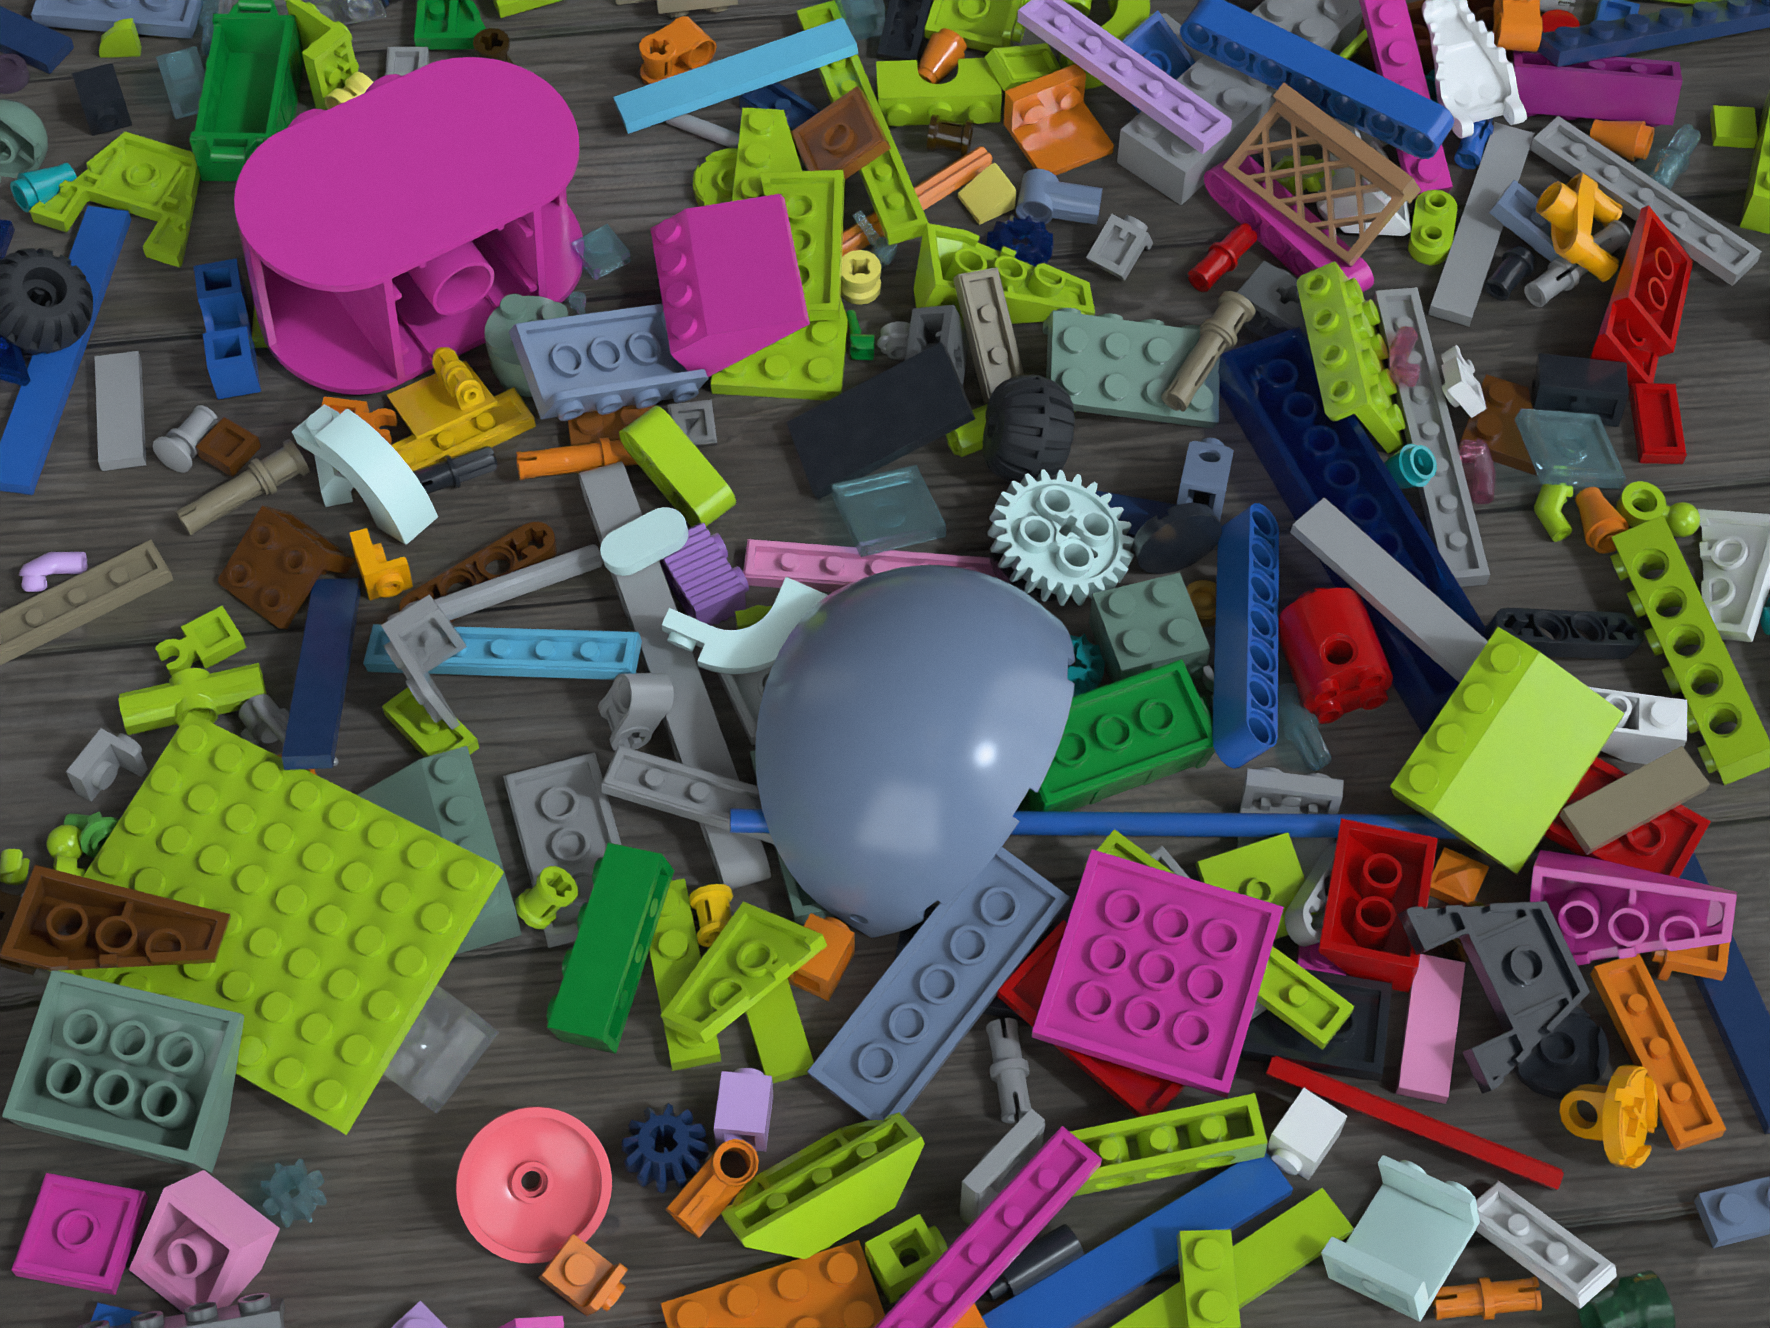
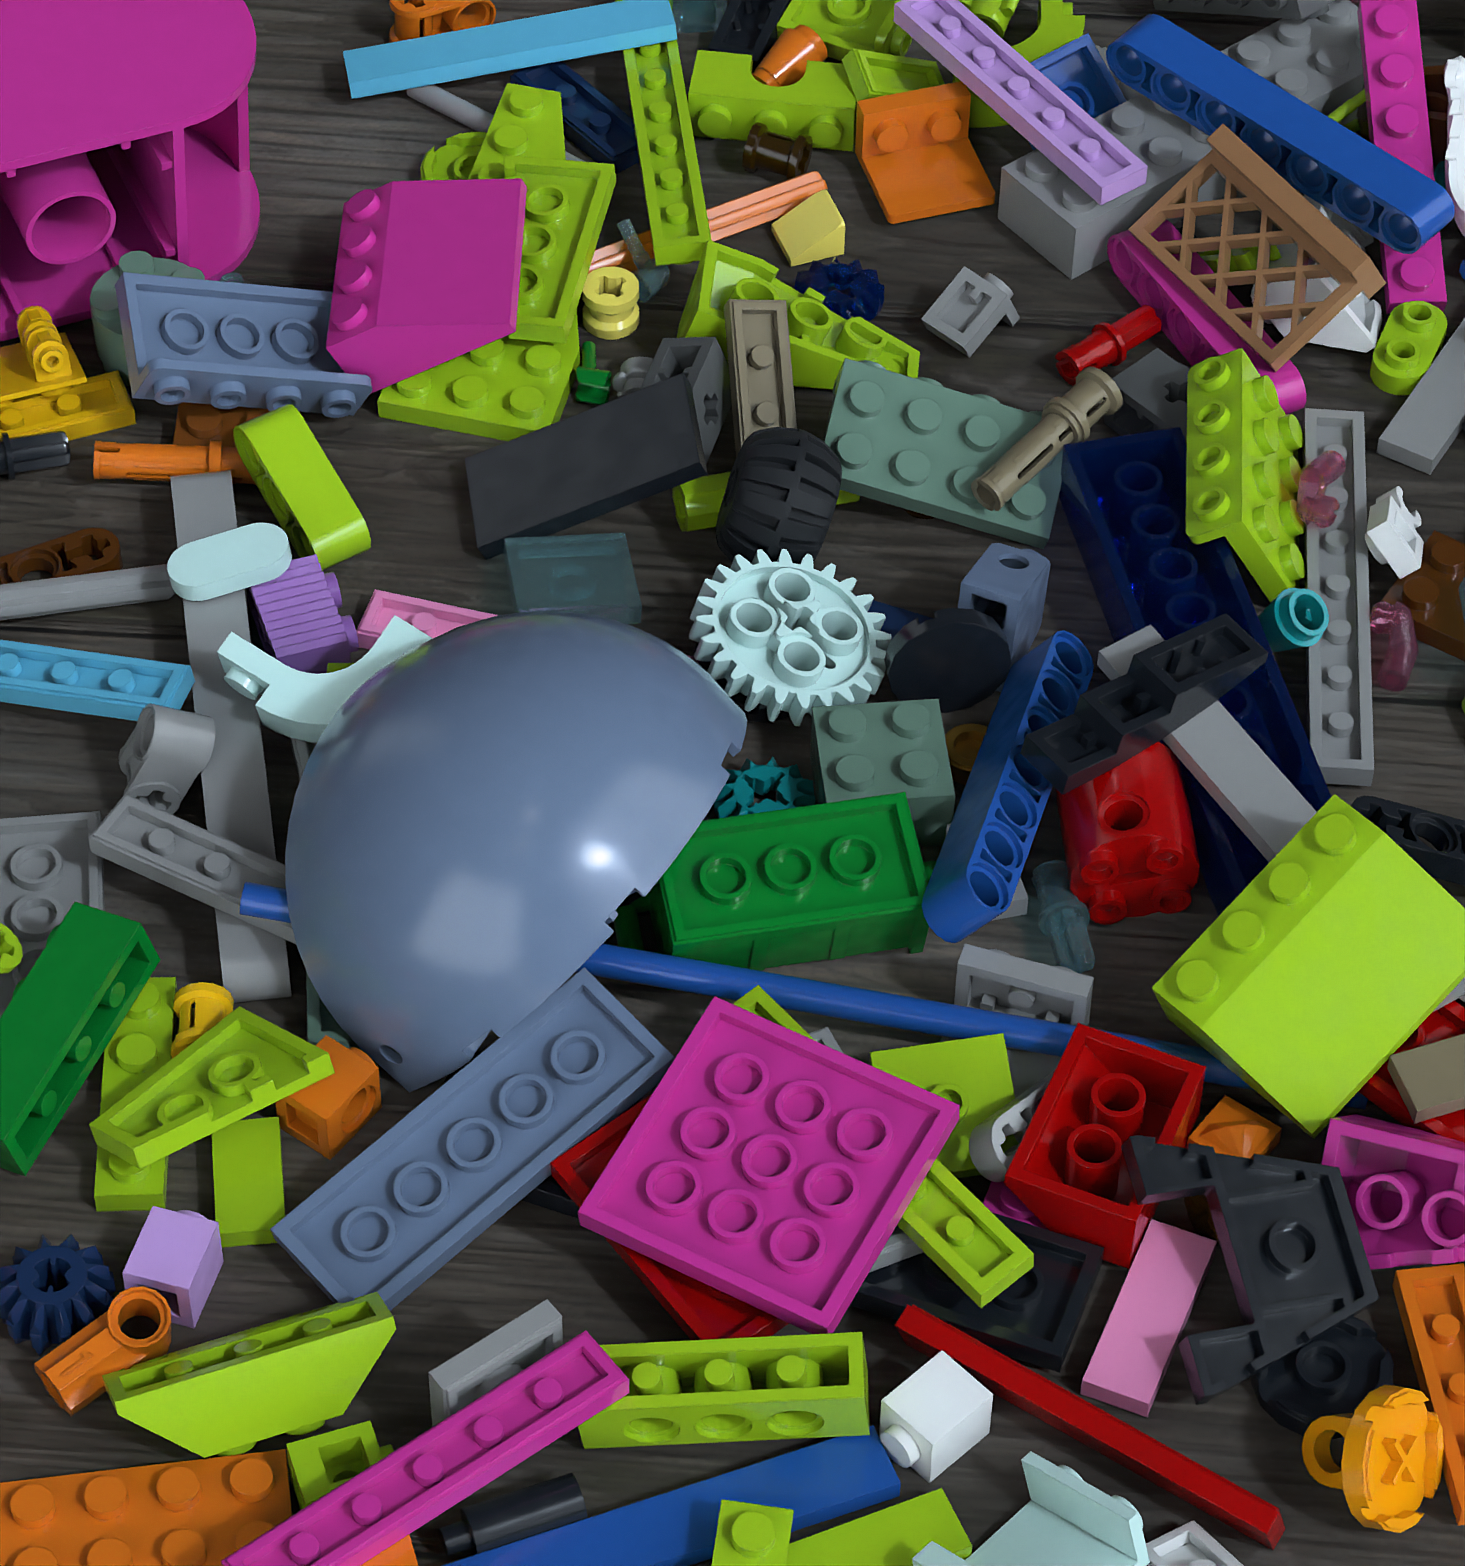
camera: 10 degrees right, 10 degrees down
(601, 252) = (279, 231): clear light blue plate -> none
(696, 421) = (344, 441): flat silver tile -> none
(841, 136) = (627, 127): dark orange tile -> none
(1009, 1069) = (550, 1269): light grey pin -> none
(1047, 198) = (887, 242): sand blue piece -> none
(1337, 564) = (1145, 705): none -> black slope

